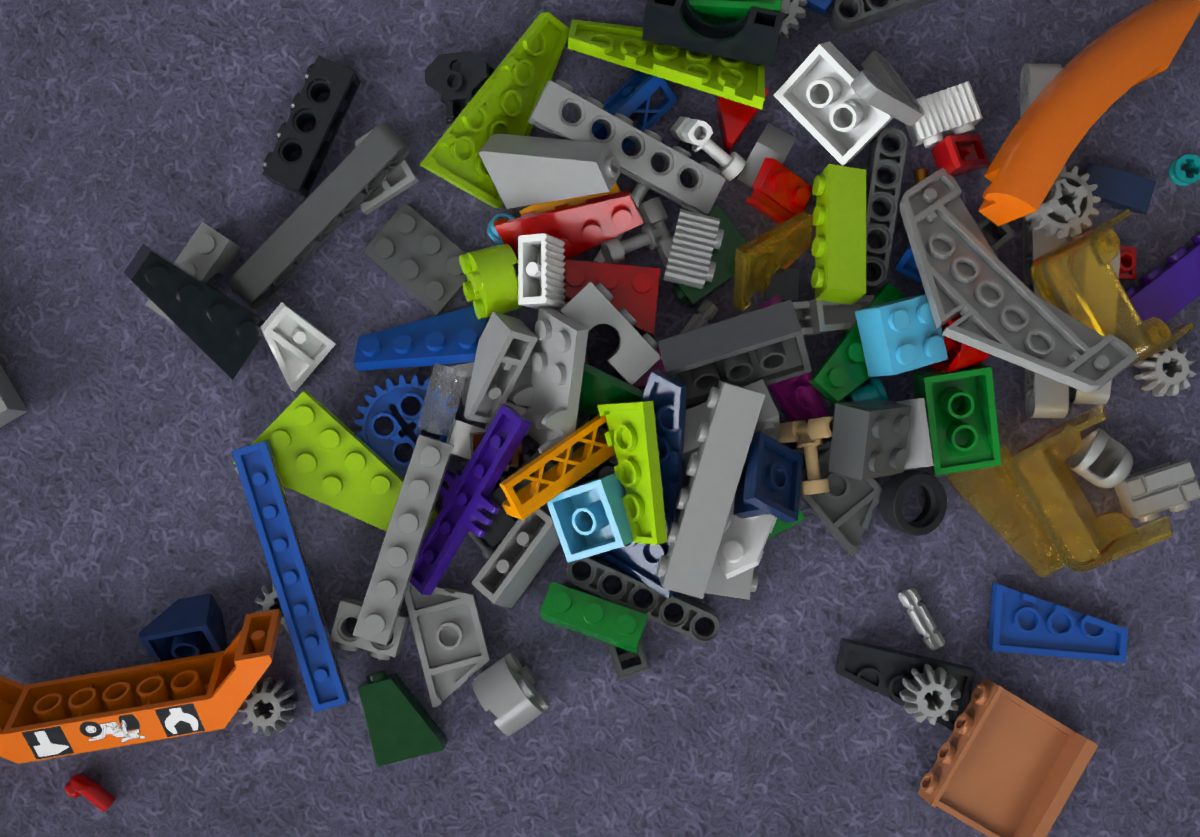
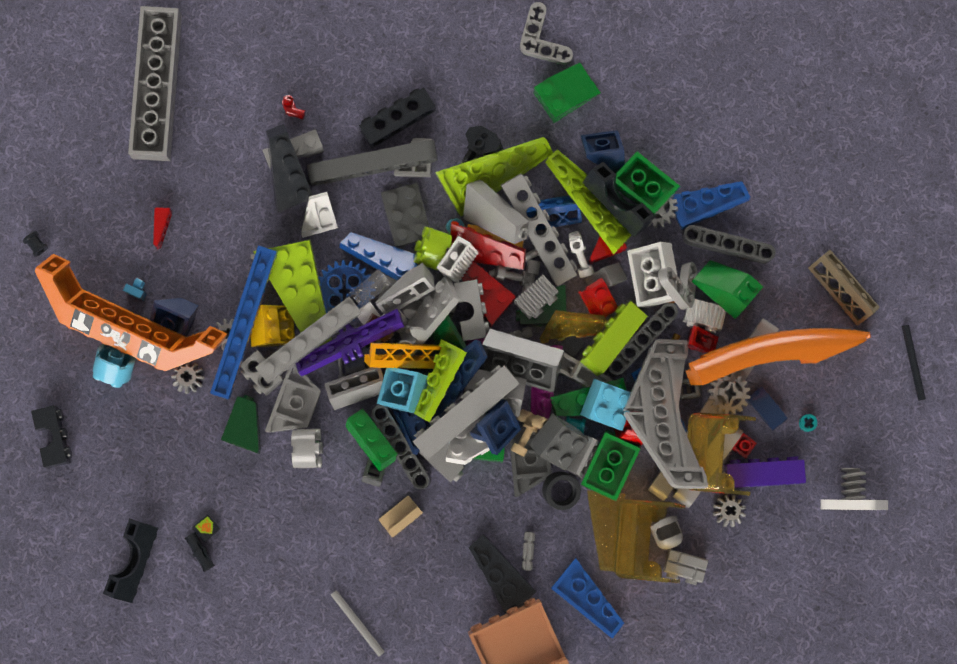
camera: 30 degrees right, 5 degrees down
(76, 513) = (161, 222): none -> red slope
(83, 785) = (77, 360): red arm -> none
(105, 631) = (136, 289): none -> dark azure tile
(145, 771) = (112, 366): none -> medium azure brick
(150, 218) = (290, 108): none -> red arm
(339, 551) = (272, 327): none -> yellow slope
(710, 694) = (400, 516): none -> tan panel
(931, 706) = (507, 578): light grey gear -> none
(952, 50) = (727, 287): none -> green slope

